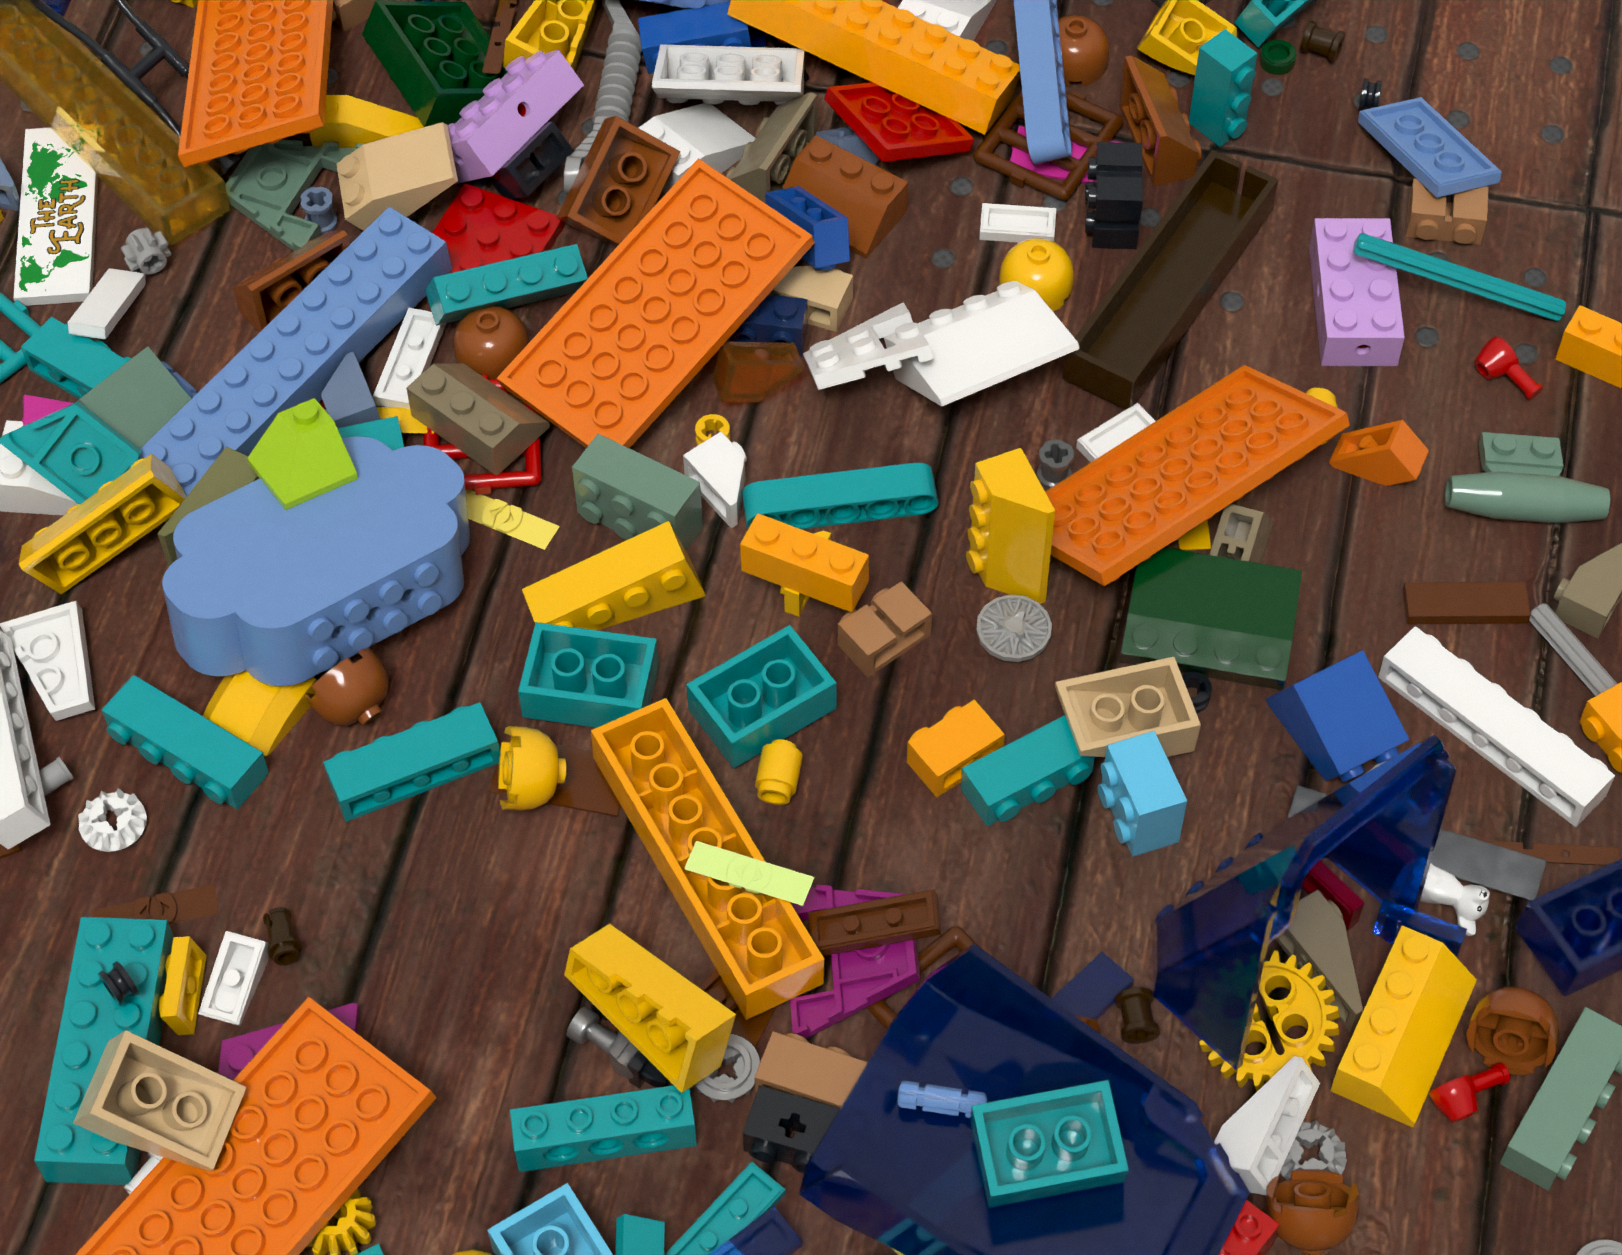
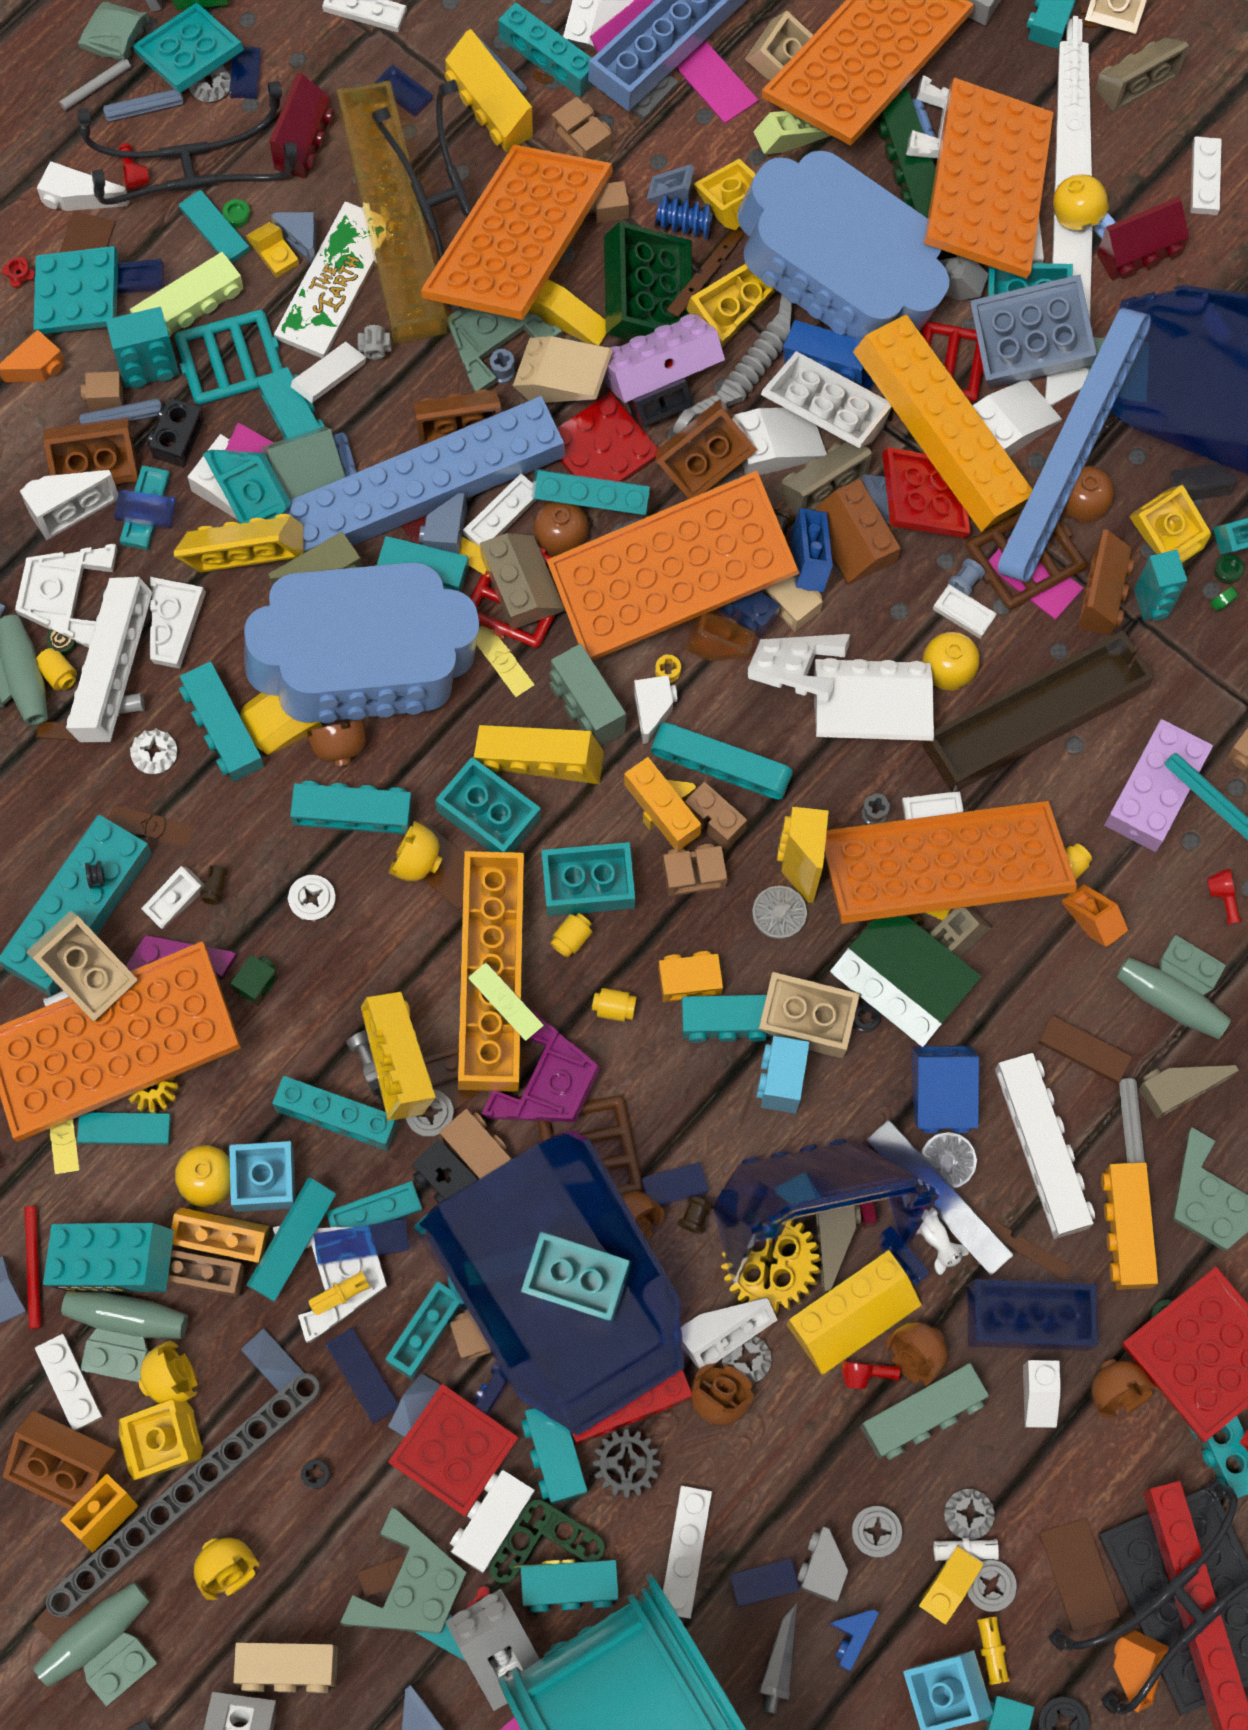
camera: 25 degrees right, 15 degrees up
(183, 985) = (139, 888): yellow plate -> none
(302, 455) = (380, 568): lime slope -> none
(401, 1021) = (255, 979): none -> dark green brick
(415, 875) = (313, 884): none -> white gear
(875, 922) = (566, 1072): reddish brown tile -> none
(881, 824) = (614, 1005): none -> yellow brick
(889, 552) = (725, 822): none -> medium nougat piece
(938, 1098) = (537, 1210): medium blue axle -> none
(999, 183) = (967, 576): none -> sand blue bush
(1114, 195) = (1036, 628): black brick -> none
(1295, 83) = (1224, 599): none -> green tile

